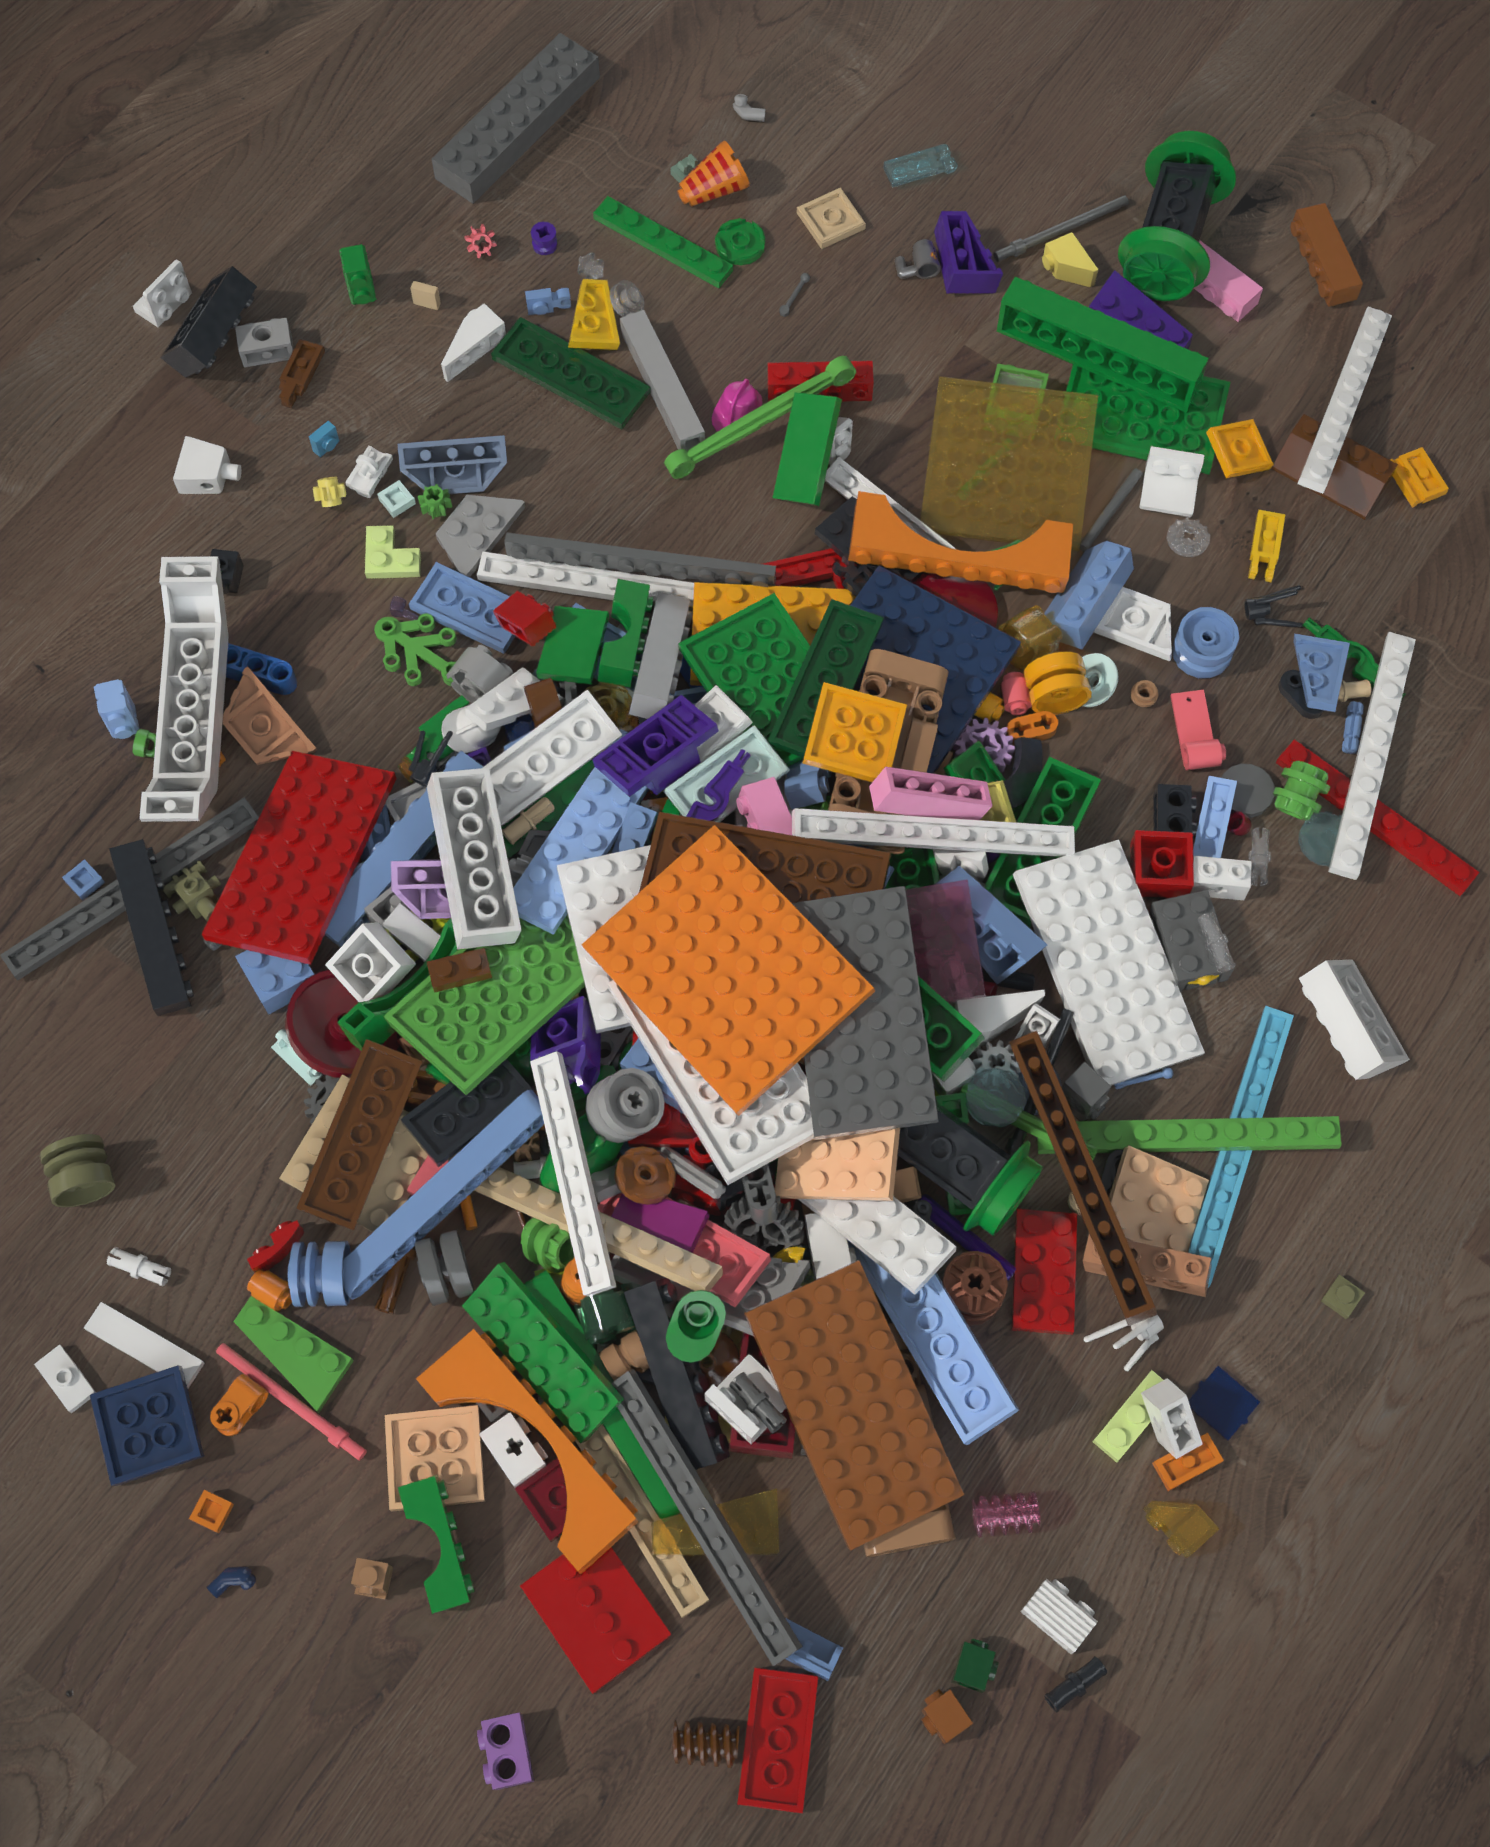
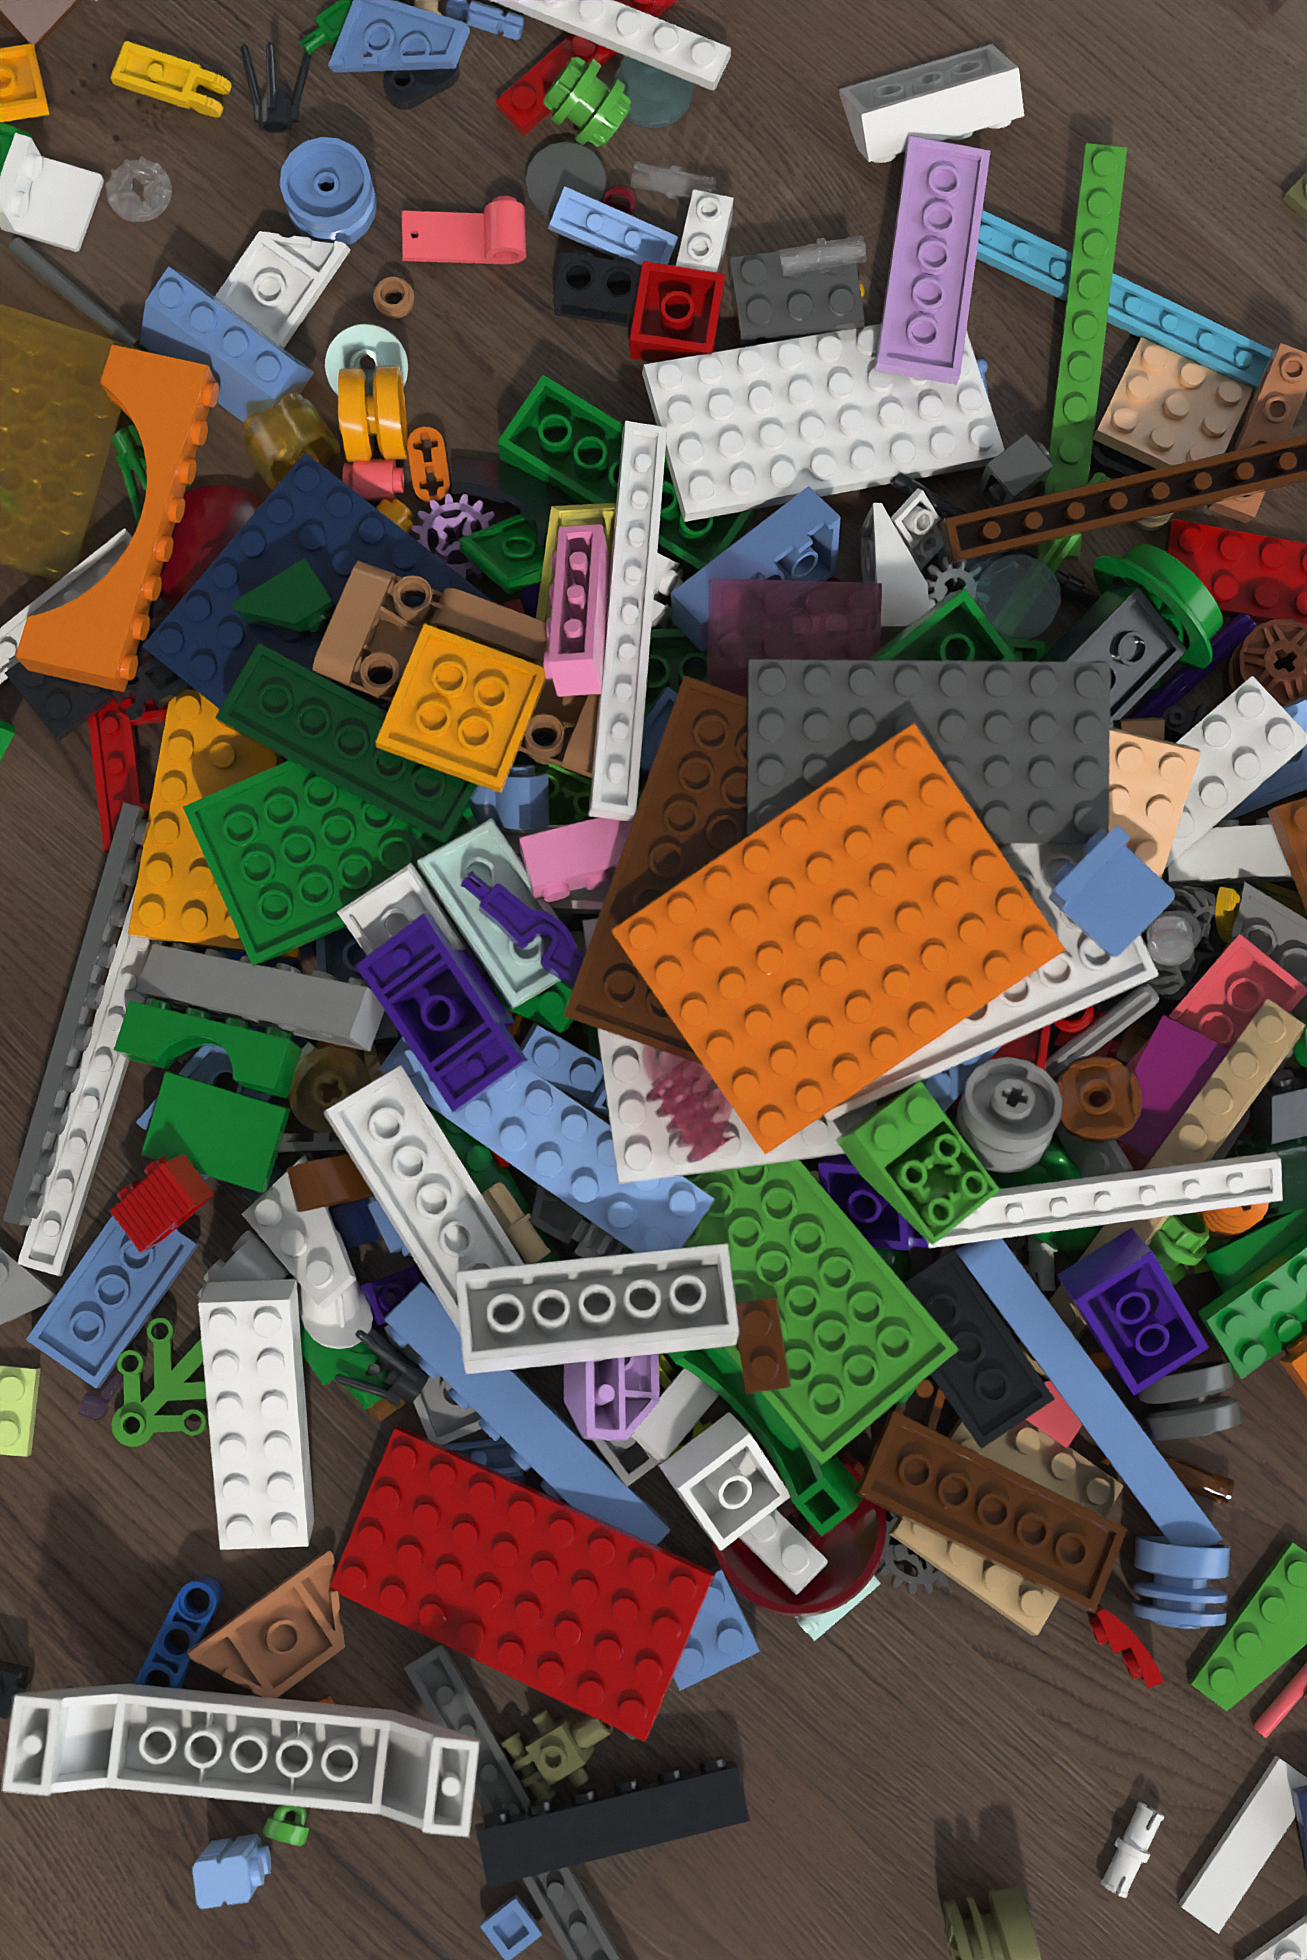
camera: 85 degrees left, 15 degrees up
(270, 1290) = (1186, 1655): orange brick -> none
(328, 1008) = (784, 1550): none -> white plate
(397, 686) = (257, 1413): none -> white brick
(499, 1209) = (1133, 1311): none -> dark purple brick
(584, 1043) = (918, 1162): none -> bright green slope
(602, 894) = (688, 1113): none -> clear pink piece
(751, 1185) = (1170, 940): none -> clear wheel
(780, 1137) = (1110, 892): none -> medium blue bracket
(918, 637) = (288, 601): none -> dark green slope
(1232, 1021) = (932, 260): none -> lavender plate

